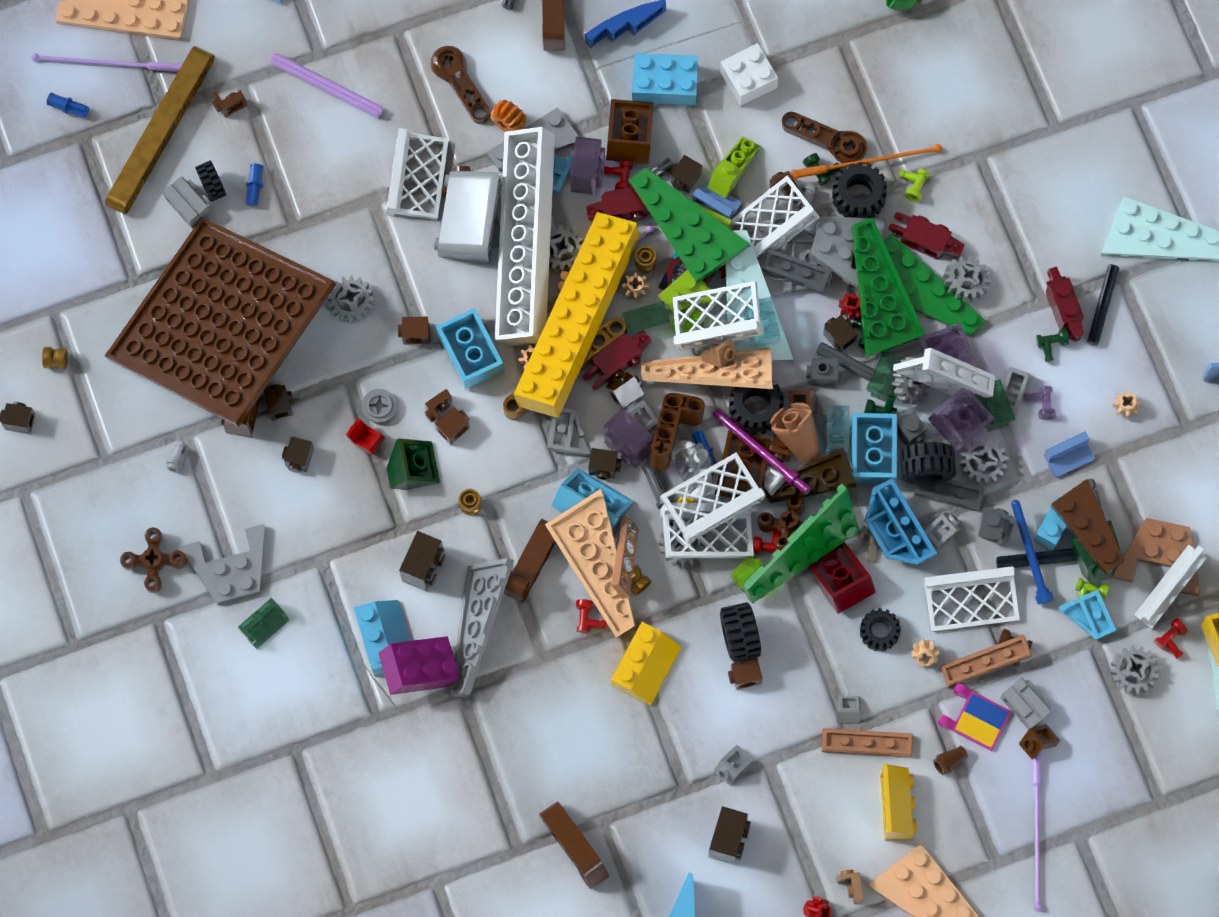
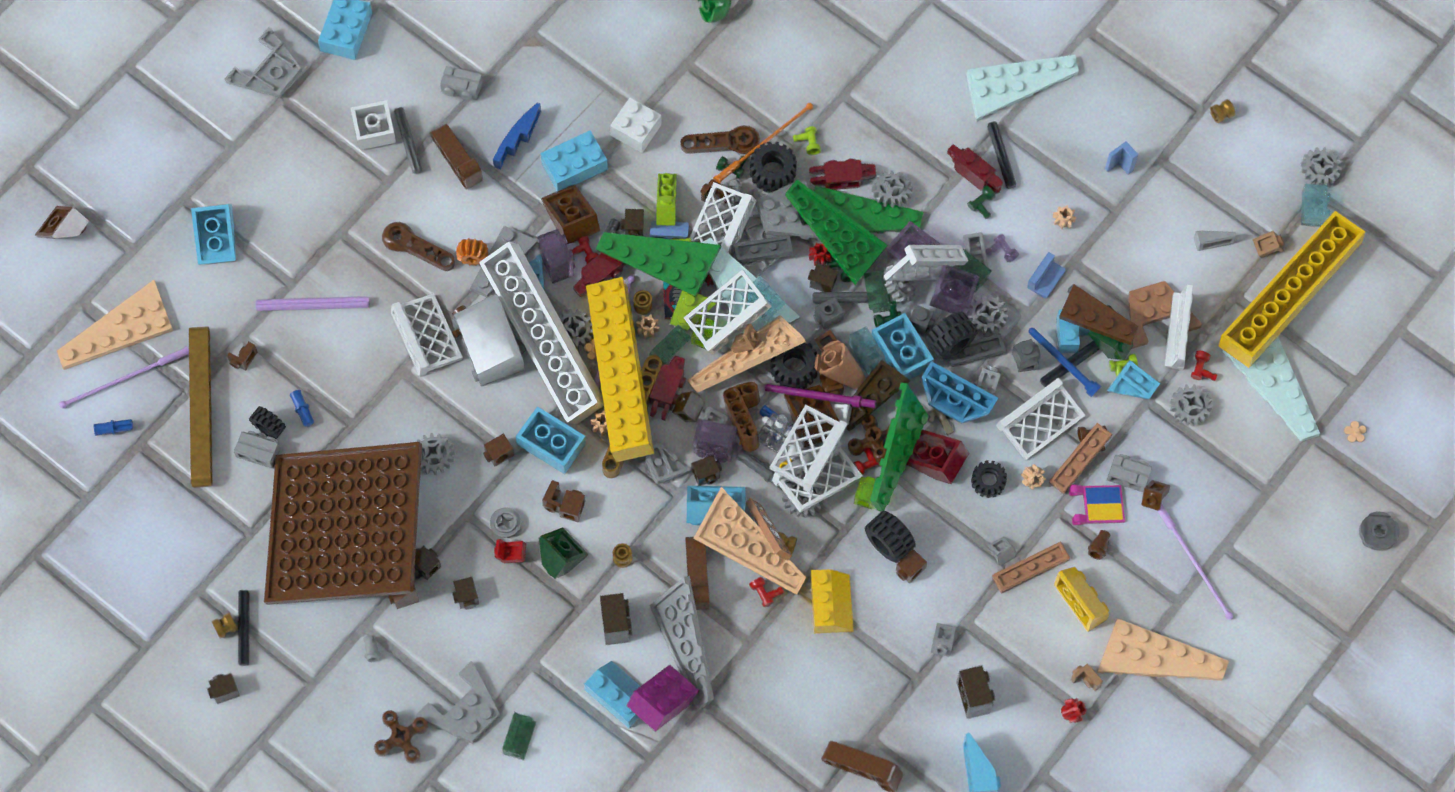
camera: 35 degrees left, 5 degrees down
(72, 370) = (243, 627): none -> black axle

